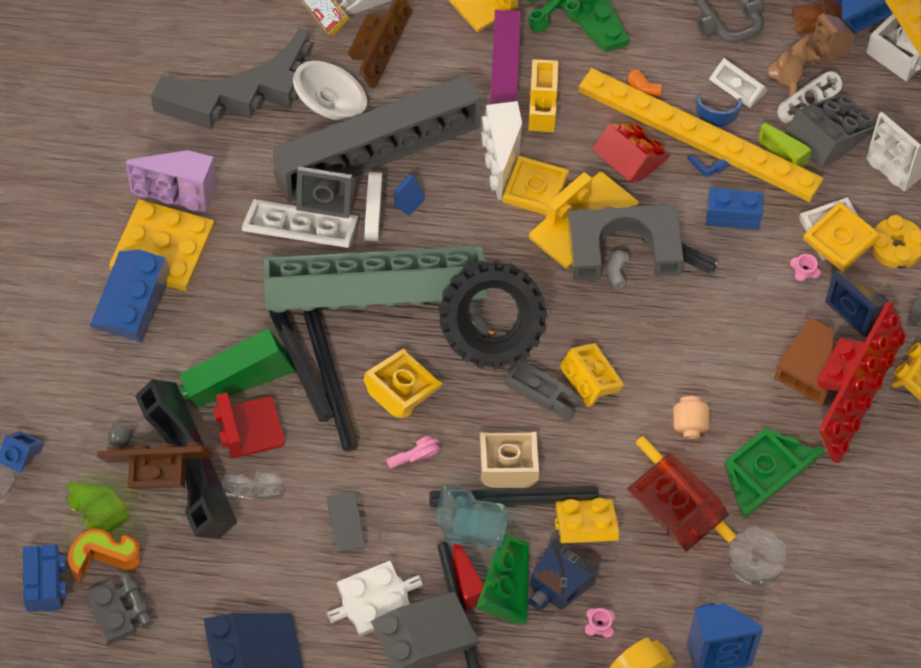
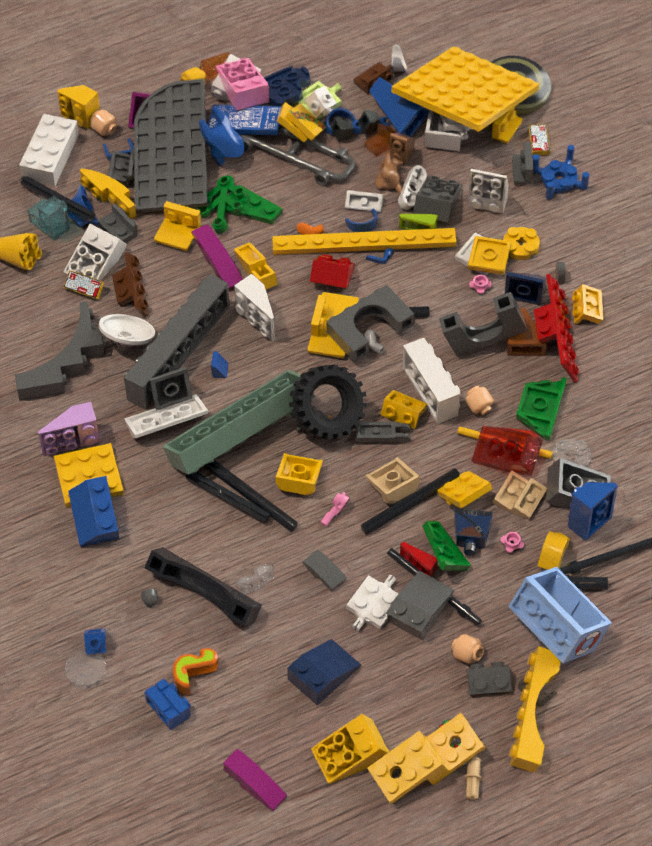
camera: 30 degrees left, 5 degrees down
(98, 506) = (168, 644): clear neon green slope -> none
(110, 612) = (223, 700): dark grey plate -> none
(155, 466) = (188, 601): reddish brown bracket -> none
(237, 369) = (194, 519): green slope -> none
(248, 426) = (224, 548): red bracket -> none
(373, 206) = (203, 383): white beam -> none
(469, 519) = (399, 524): clear light blue brick -> none
(534, 184) = (291, 321): yellow tile -> none
(647, 358) = (431, 380): none -> white brick
(654, 568) = (519, 495): none -> tan slope
(724, 325) = (467, 338): none -> dark grey arch
(729, 582) = (565, 477): none -> dark grey slope
(734, 208) = (416, 271): blue brick -> none

